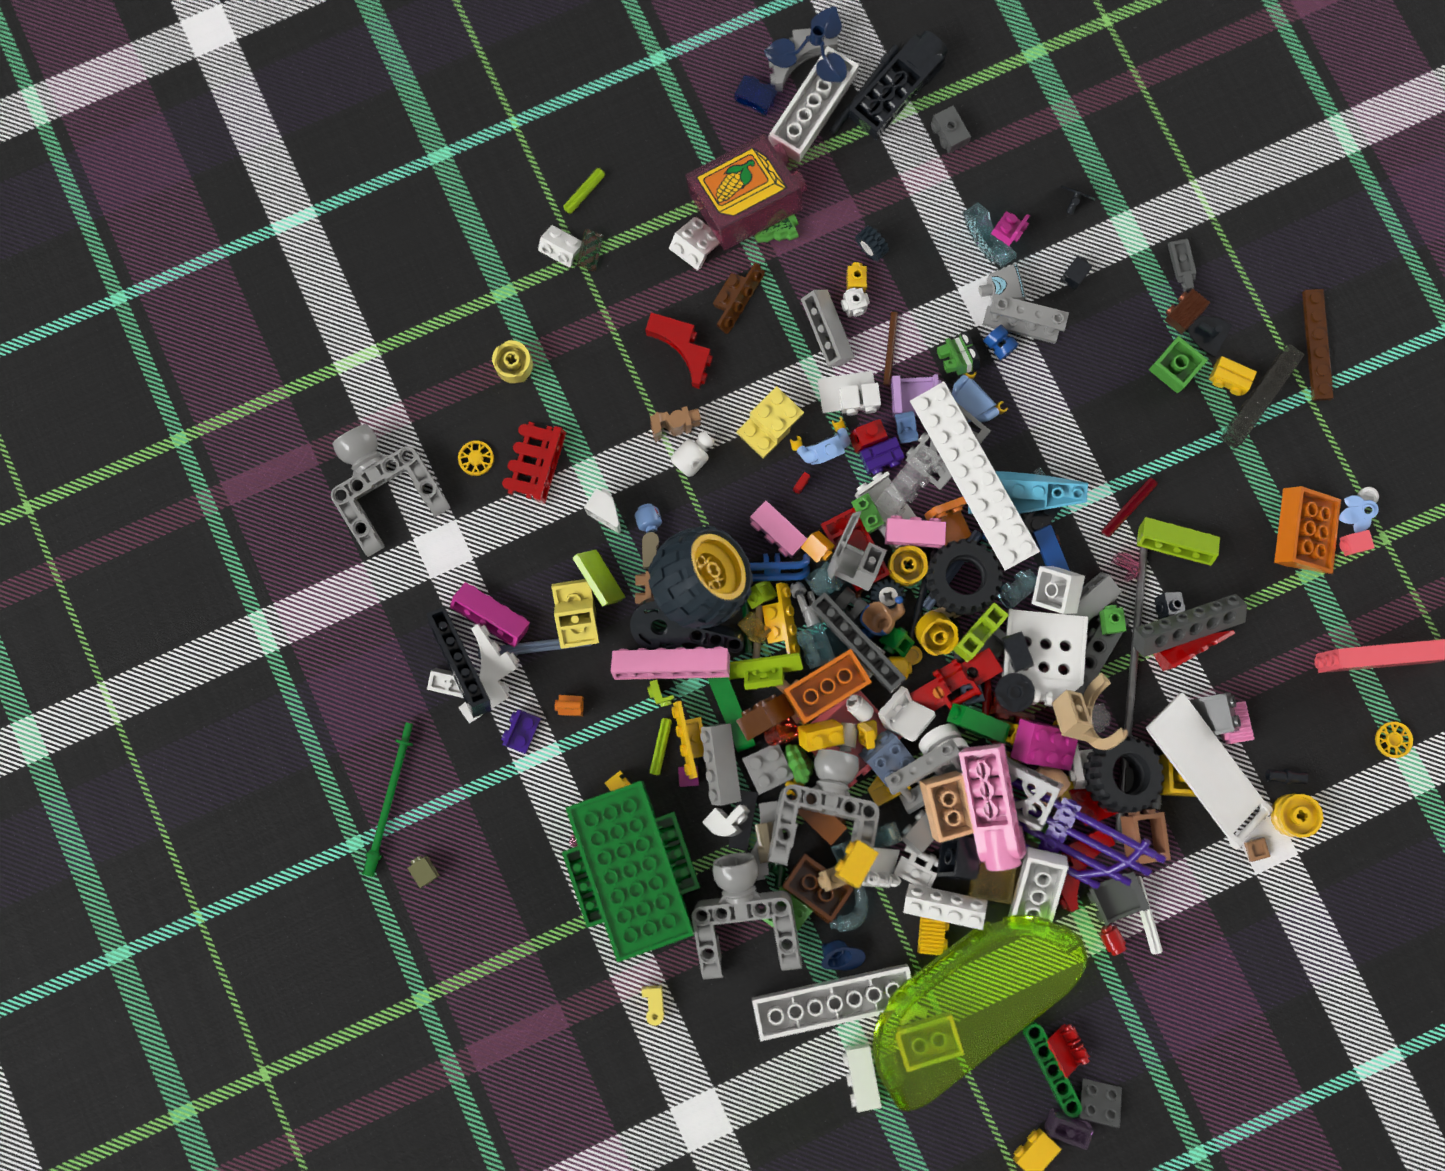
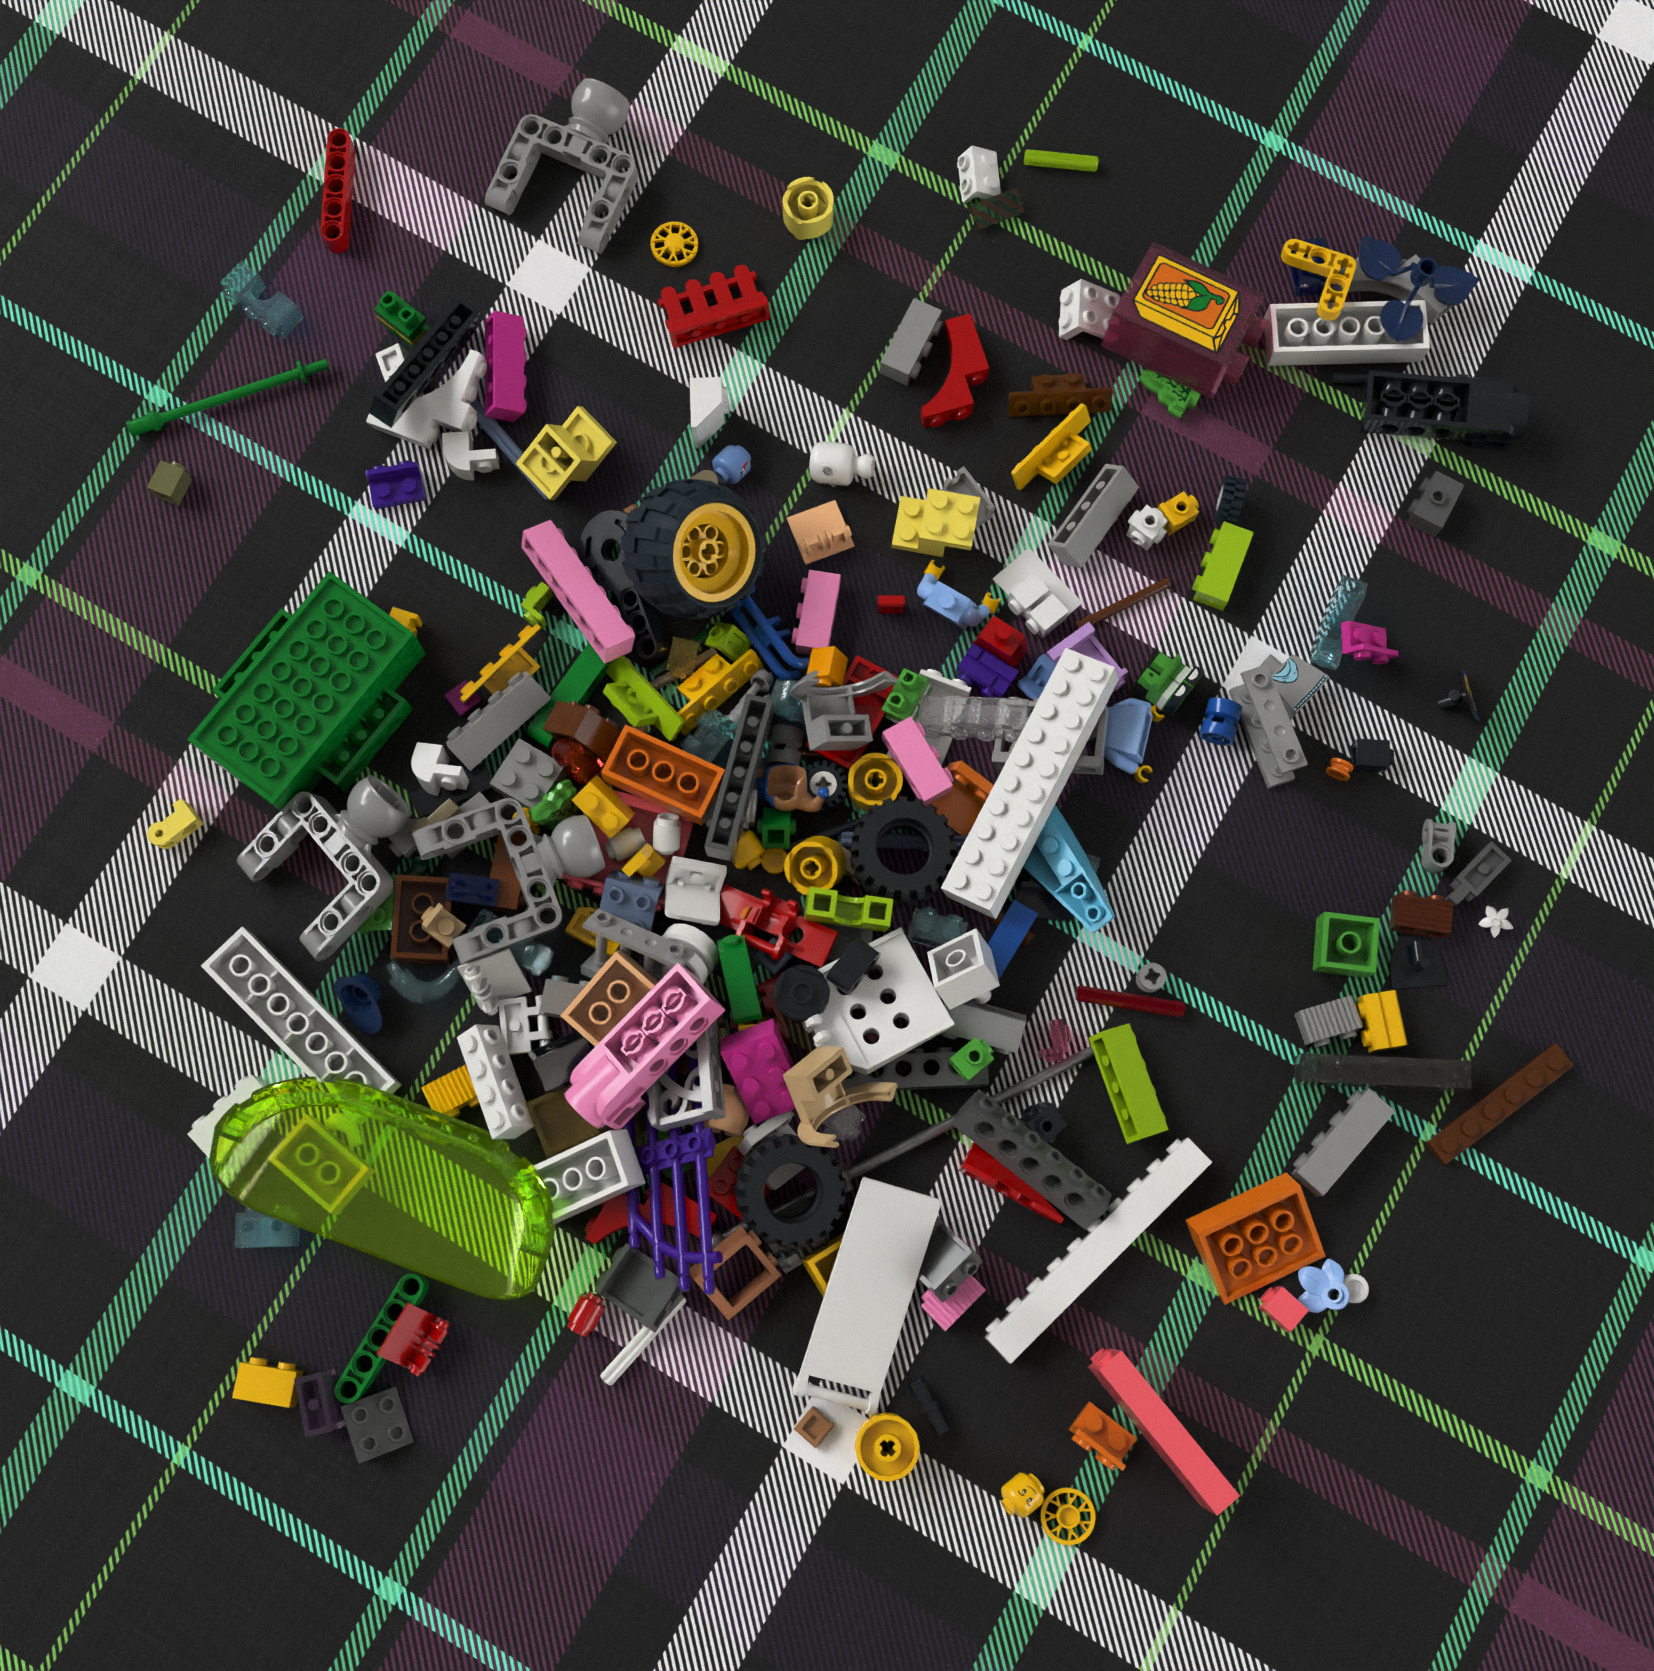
camera: 55 degrees right, 5 degrees down
(285, 641) = (340, 201): none -> red beam
(354, 734) = (277, 314): none -> clear light blue arch
(414, 657) = (401, 319): none -> green hips
(532, 680) = (463, 459): none -> white brick
(569, 705) = (458, 517): orange brick -> none
(599, 577) = (624, 452): lime tile -> none
(643, 359) = (911, 342): none -> light grey brick
(660, 746) = (477, 646): lime axle -> none
(676, 423) = (865, 423): medium nougat hips -> none
(726, 493) = (820, 532): none -> light nougat hinge
(759, 390) = (966, 485): none -> light grey hinge
(771, 84) = (1329, 269): none -> yellow beam
(773, 321) = (1057, 452): none -> yellow bracket
(820, 846) = (472, 890): none -> clear blue hips
(856, 863) = (471, 932): yellow brick -> none
(906, 275) = (1221, 565): none -> lime brick
(945, 1104) = (262, 1231): none -> clear light blue brick
(1072, 295) = (1339, 769): none -> orange bush
(1120, 488) = (1145, 979): none -> light grey wheel
(1151, 271) = (1439, 840): none -> light grey piece
(1213, 405) = (1329, 1020): none -> light grey brick
(1215, 272) = (1496, 920): none -> white plant
(1260, 623) = (1097, 1249): none -> white brick
(1286, 445) = (1342, 1142): none -> light grey brick
(1364, 692) = (1099, 1432): none -> orange bracket
(1368, 757) = (1022, 1495): none -> yellow head

